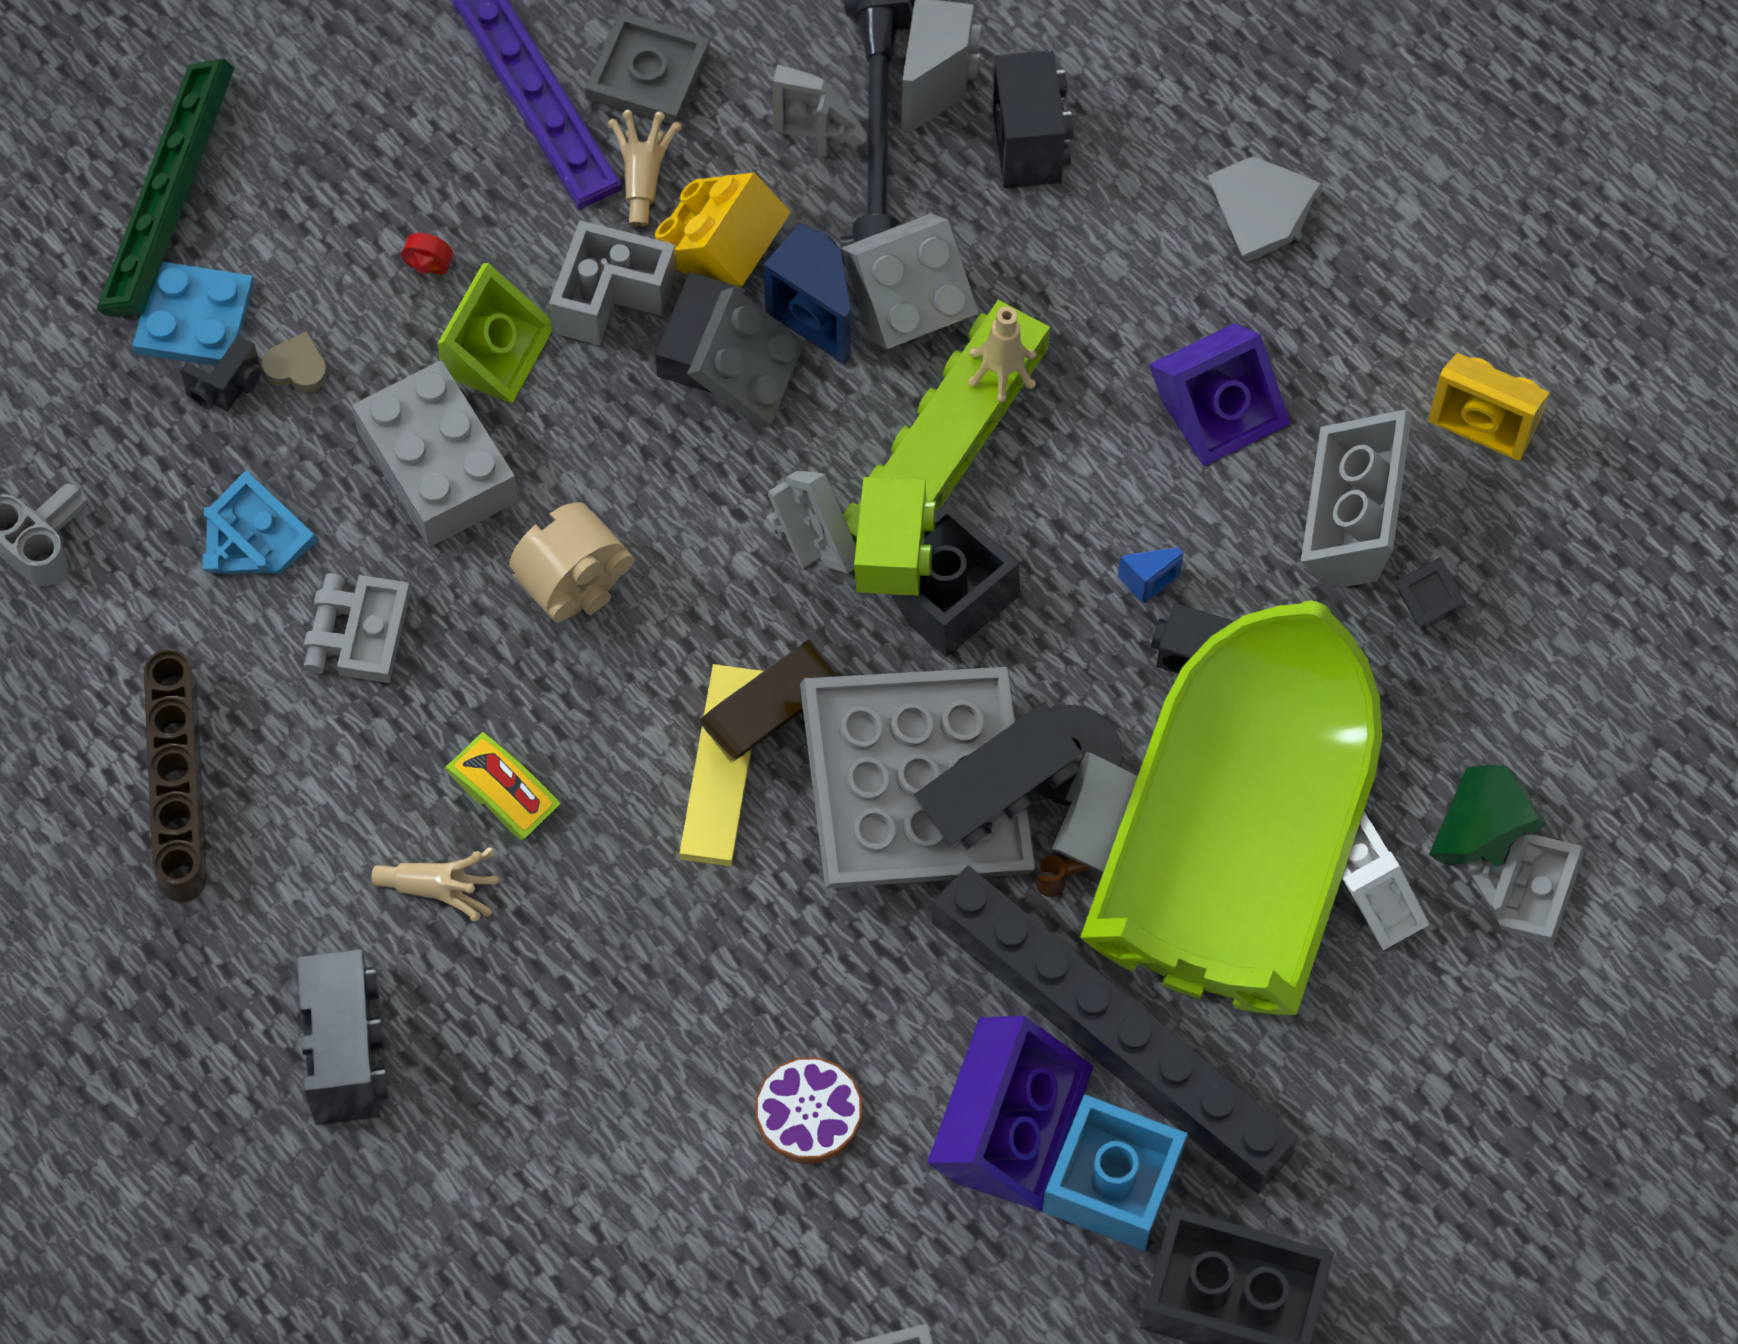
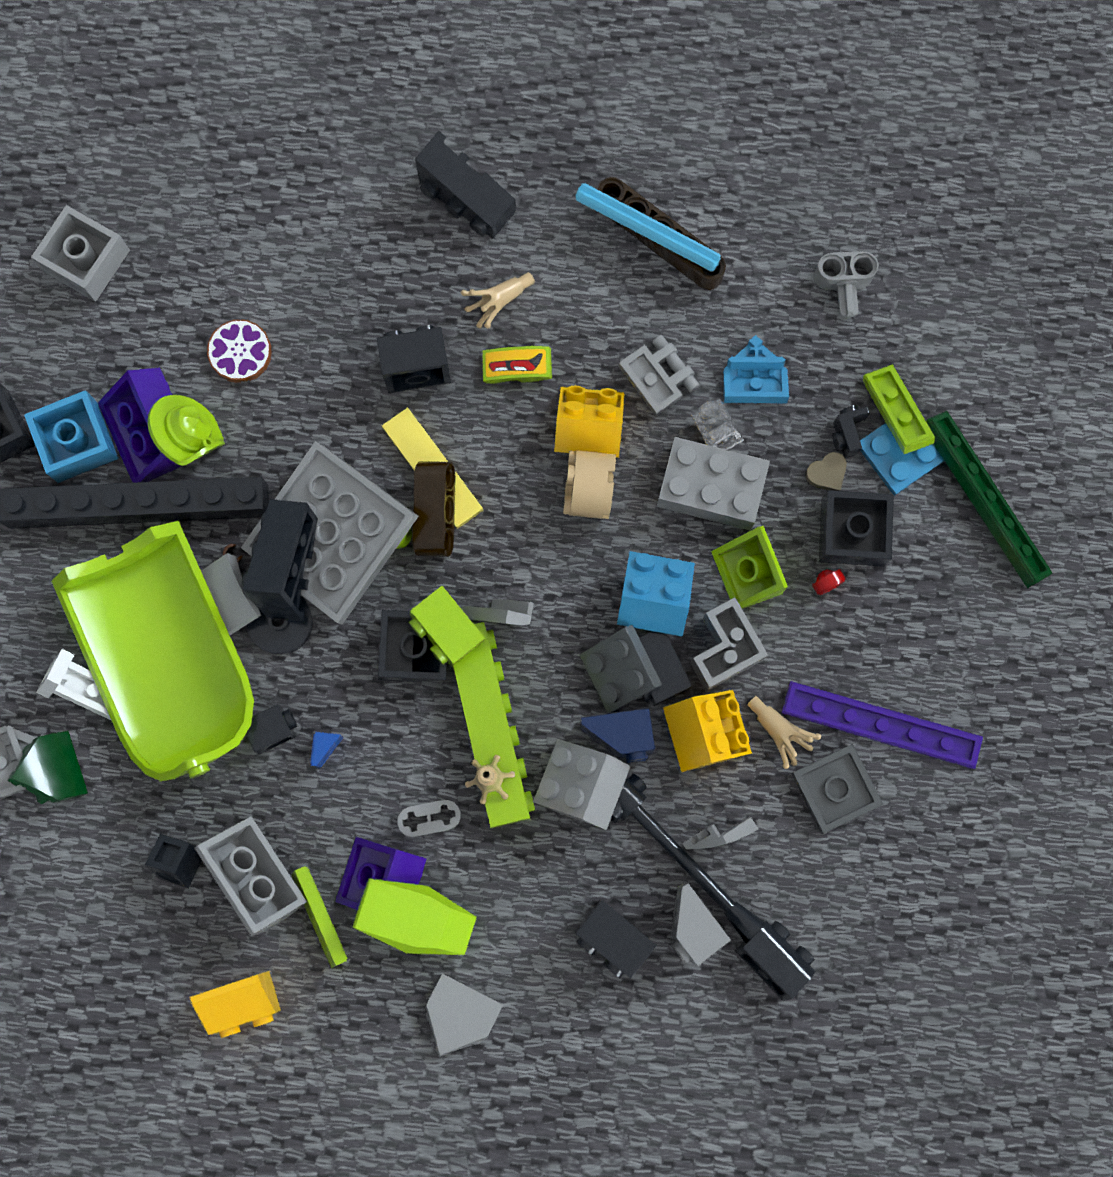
camera: 135 degrees right, 15 degrees up
(148, 346) = (898, 409): none -> lime tile
(189, 773) = (647, 227): none -> medium azure axle
(339, 270) = (856, 528): none -> black brick
(371, 495) = (714, 413): none -> clear brick
(491, 643) = (589, 420): none -> yellow slope
(618, 878) = (413, 359): none -> black brick
(625, 389) = (656, 593): none -> dark azure brick
(970, 1046) = (183, 429): none -> lime hat
(1098, 416) = (427, 810): none -> light grey beam
(1219, 308) = (413, 918): none -> lime piece
(1322, 408) = (319, 917): none -> lime tile

